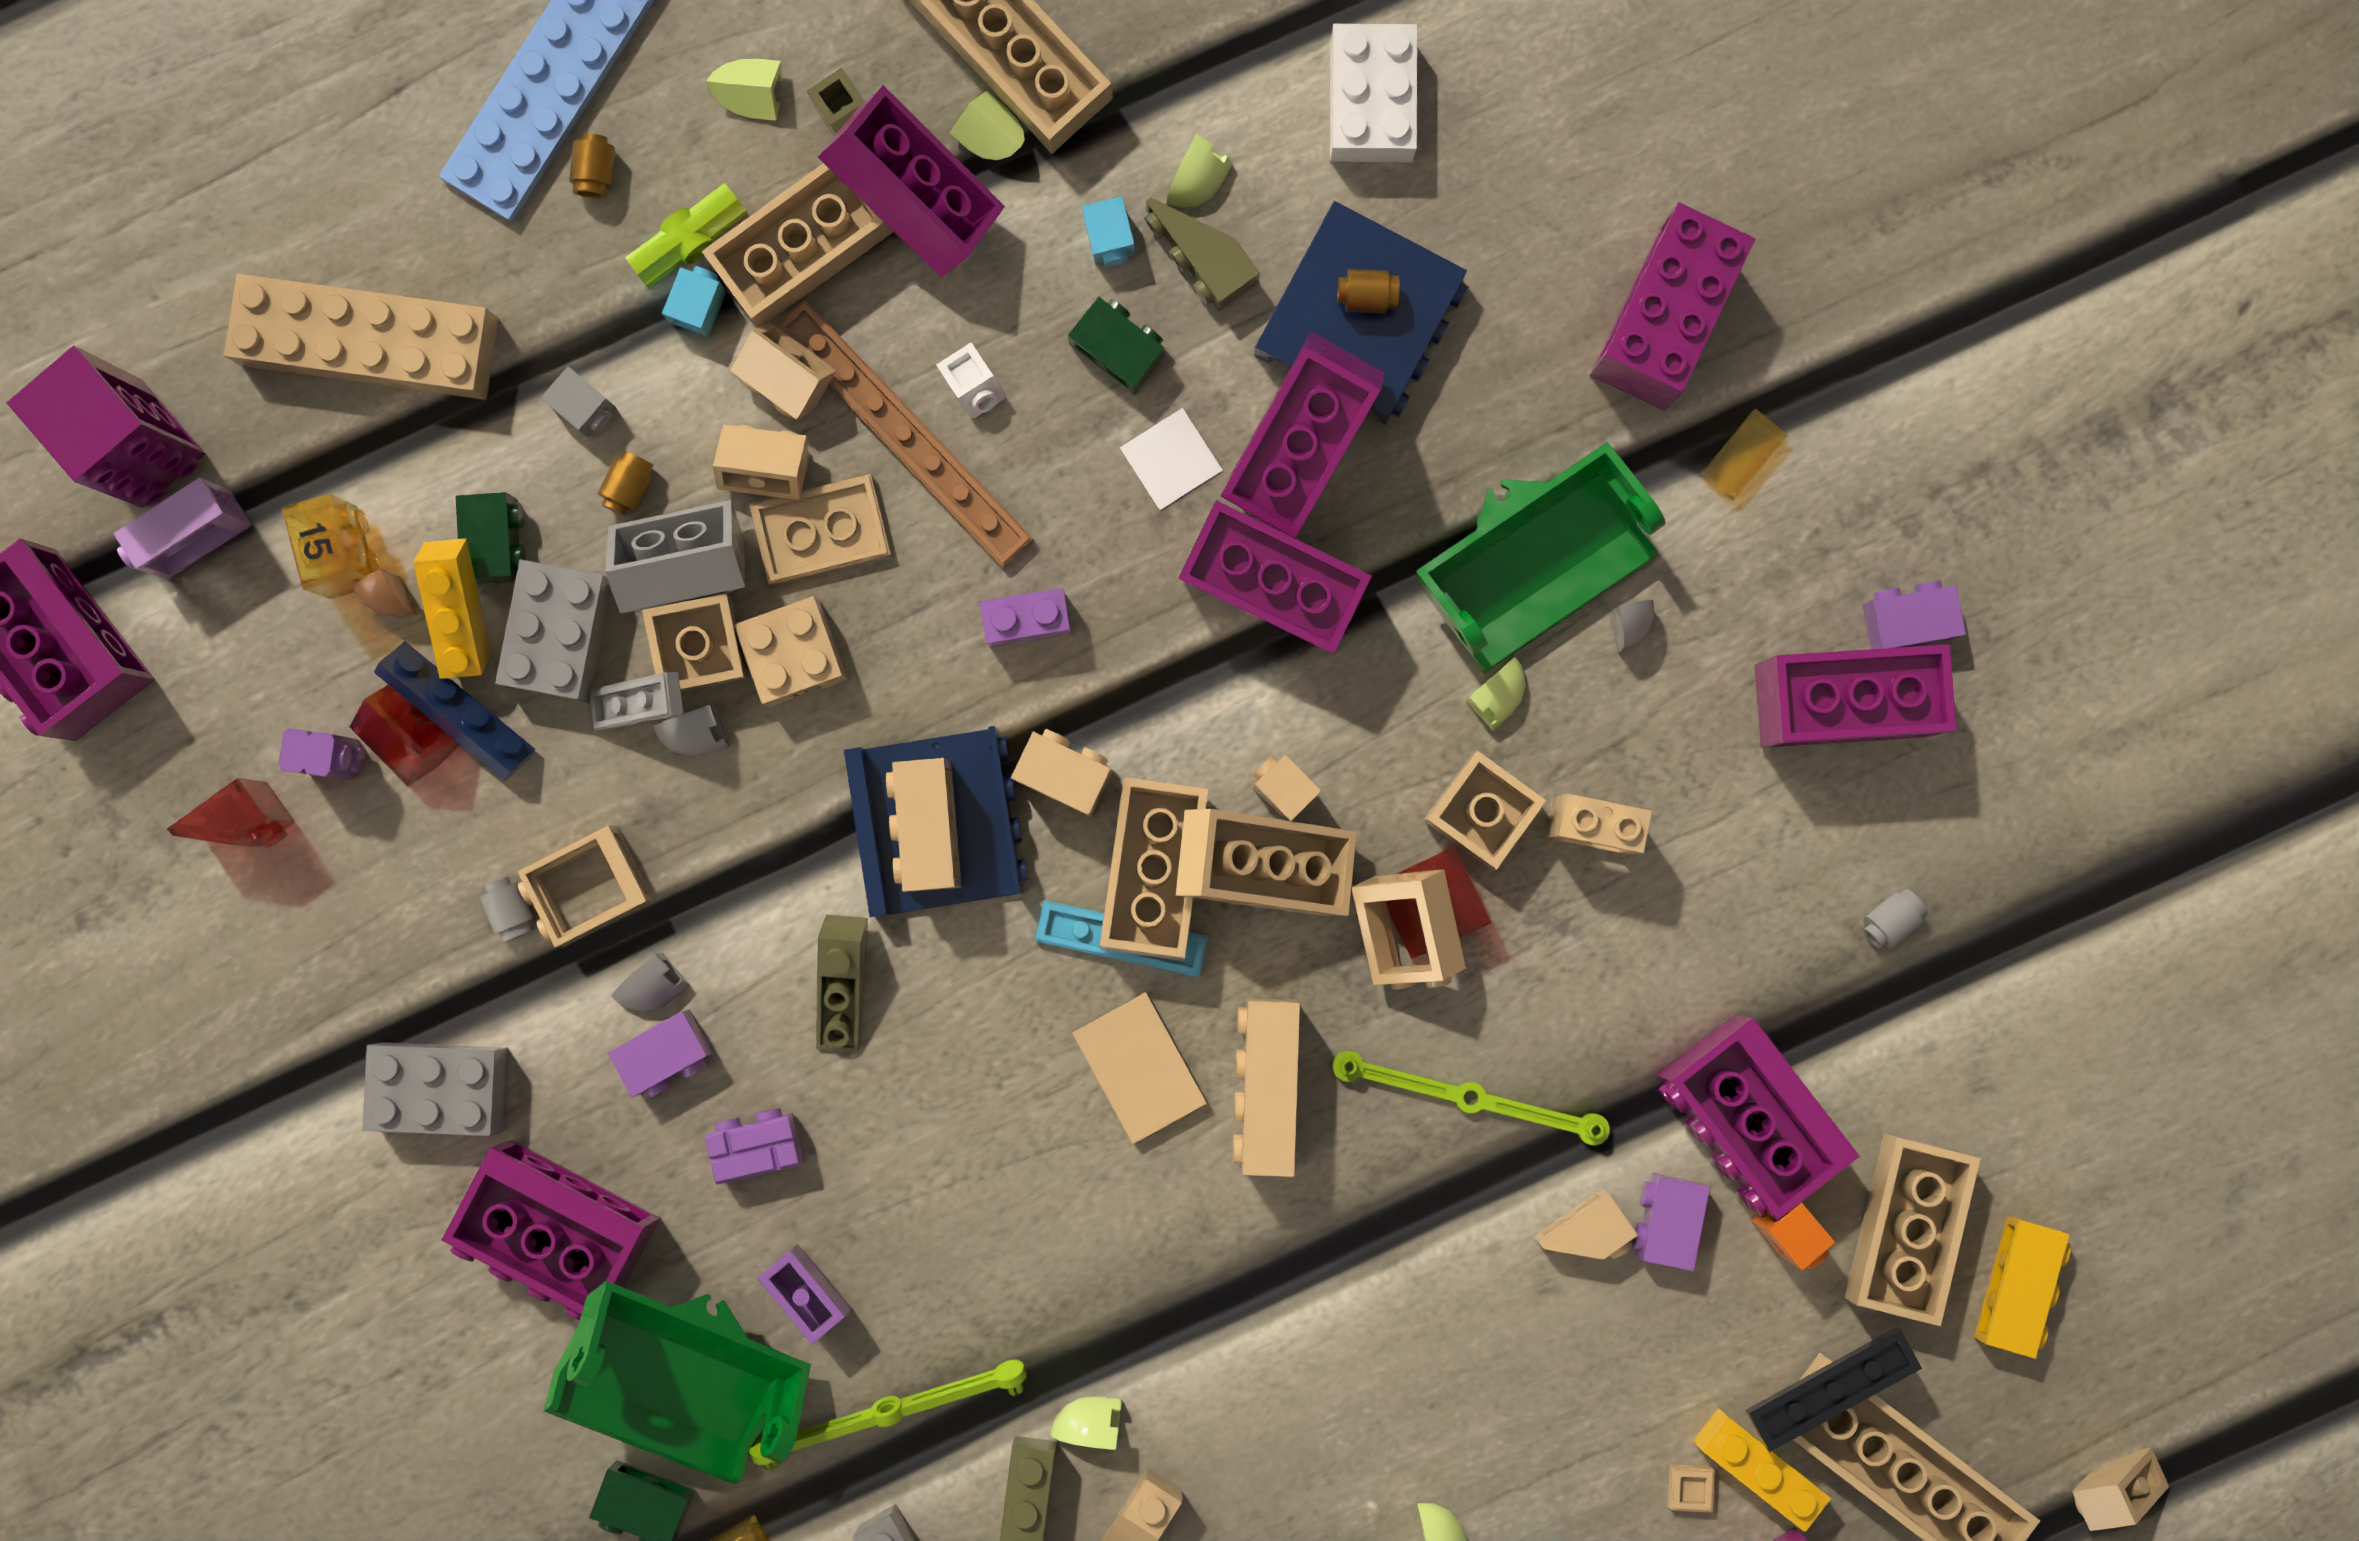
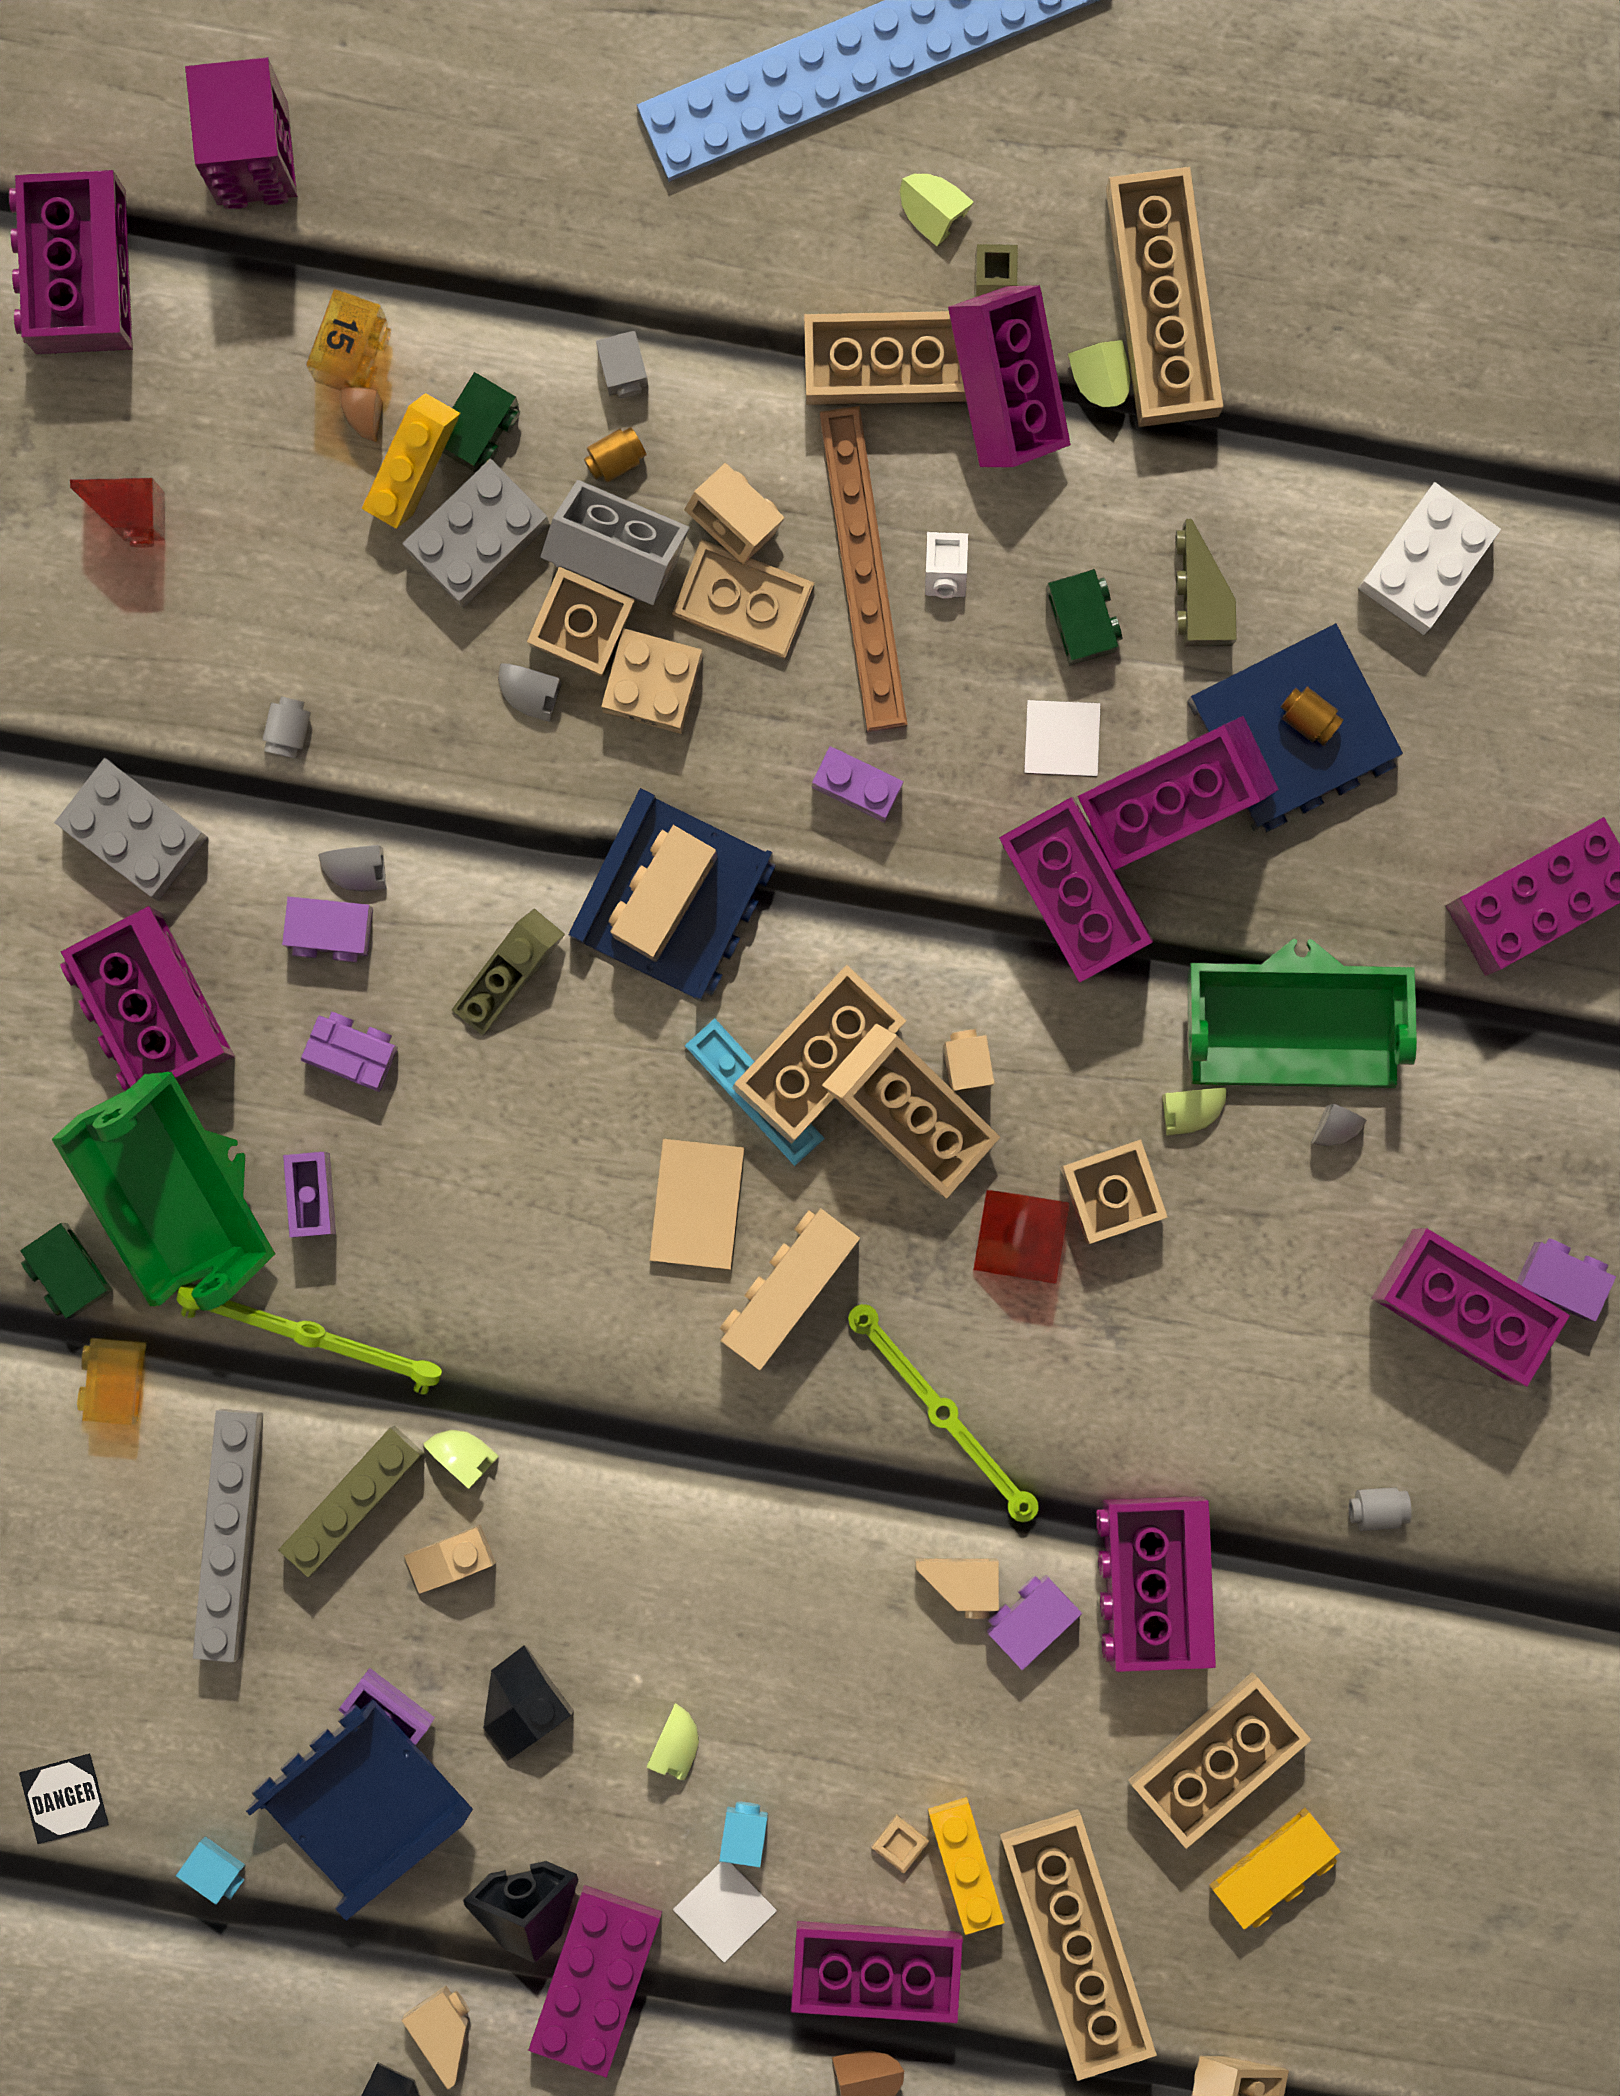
camera: 30 degrees right, 0 degrees up
(181, 529) = (240, 248): lavender window -> none
(321, 754) = (226, 503): medium lavender brick -> none
(361, 336) = (487, 191): tan brick -> none
(401, 735) = (314, 529): clear red slope -> none
(454, 711) = (354, 541): dark blue plate -> none
(592, 166) = (764, 182): pearl gold brick -> none
(623, 867) = (401, 756): tan window -> none
(636, 701) = (503, 635): light grey tile -> none
(686, 235) = (801, 290): lime piece -> none
(694, 300) = (771, 346): medium azure brick -> none
(782, 371) = (801, 452): tan brick -> none
(1062, 773) = (800, 928): tan brick -> none
(1109, 231) = (1139, 522): medium azure brick -> none
(1198, 175) = (1243, 526): yellowish green brick -> none
(1437, 922) = (1012, 1252): tan window -> none
(1598, 824) = (1181, 1254): tan window -> none
(1743, 454) = (1523, 1055): clear yellow tile -> none
(1796, 1237) = (1122, 1698): orange brick -> none
(1833, 1389) = (1066, 1835): black plate -> none

